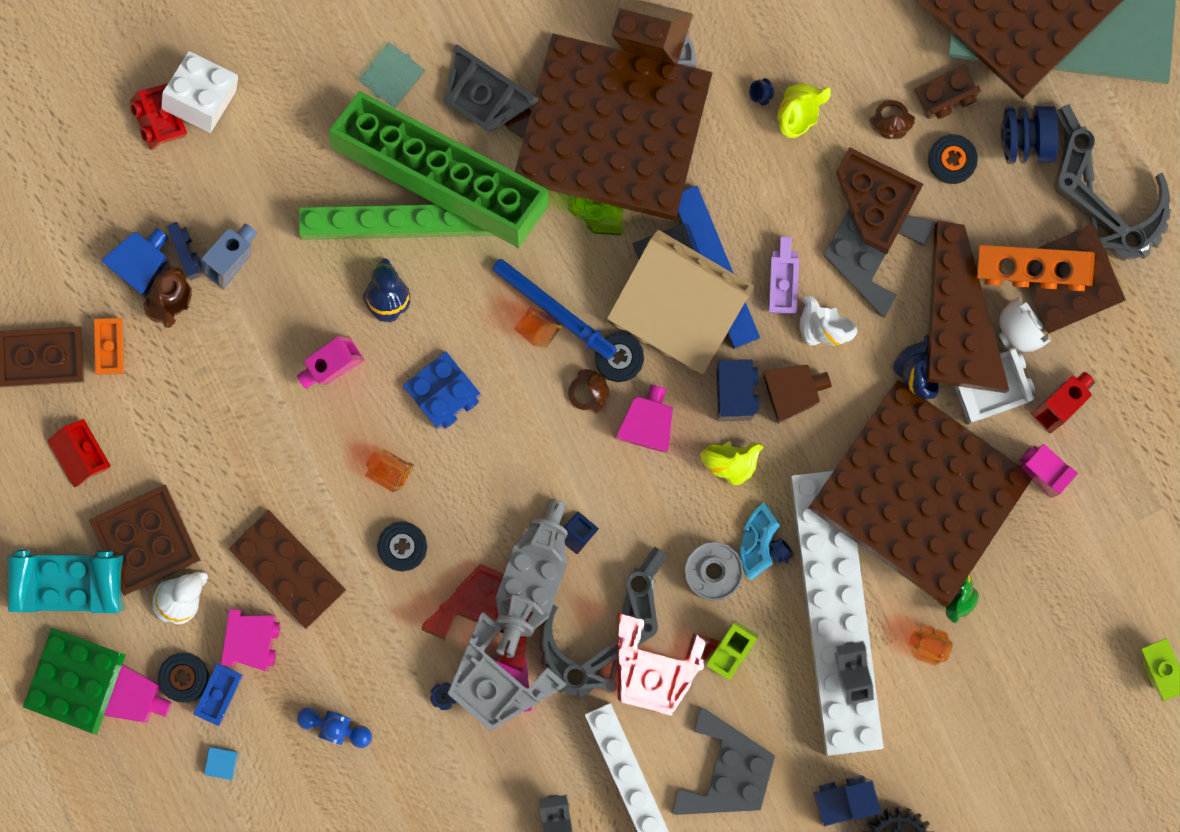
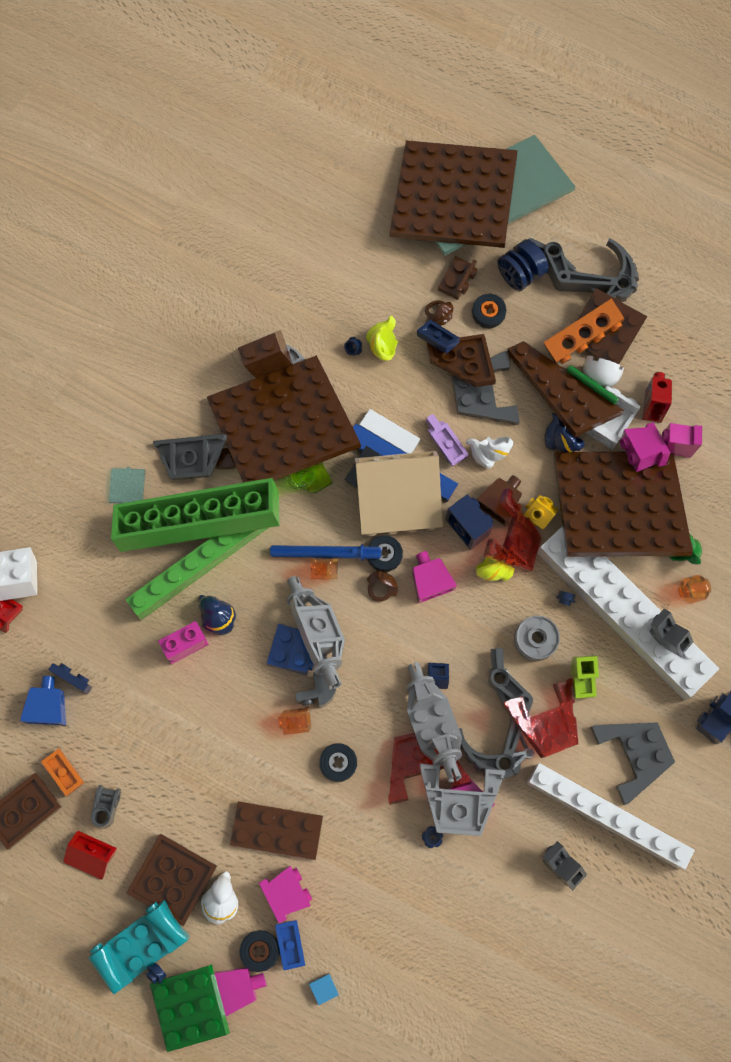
camera: 40 degrees left, 10 degrees down
(63, 622) = (155, 973): none -> dark blue plate
(130, 413) = (105, 804): none -> dark grey piece
(168, 297) = (79, 713): reddish brown hair -> none
(222, 264) = (100, 661): sand blue torso -> none
(329, 299) = (183, 642): none -> dark pink hips
(334, 727) = (379, 909): blue piece -> none
(340, 357) = (217, 673): dark pink torso -> none
(443, 460) = (321, 693): none -> dark grey brick
(479, 390) = (318, 630): none -> light grey plate
(728, 222) = (389, 432): none -> white tile
(756, 541) = (546, 601): medium azure tile -> none
(777, 452) = (521, 538): none -> clear red wing
(826, 436) = (541, 511): none -> yellow brick
(865, 150) = (438, 336): none -> dark blue plate
(997, 334) = (592, 384): none -> green bar
(998, 448) = (644, 447): none -> dark pink hips

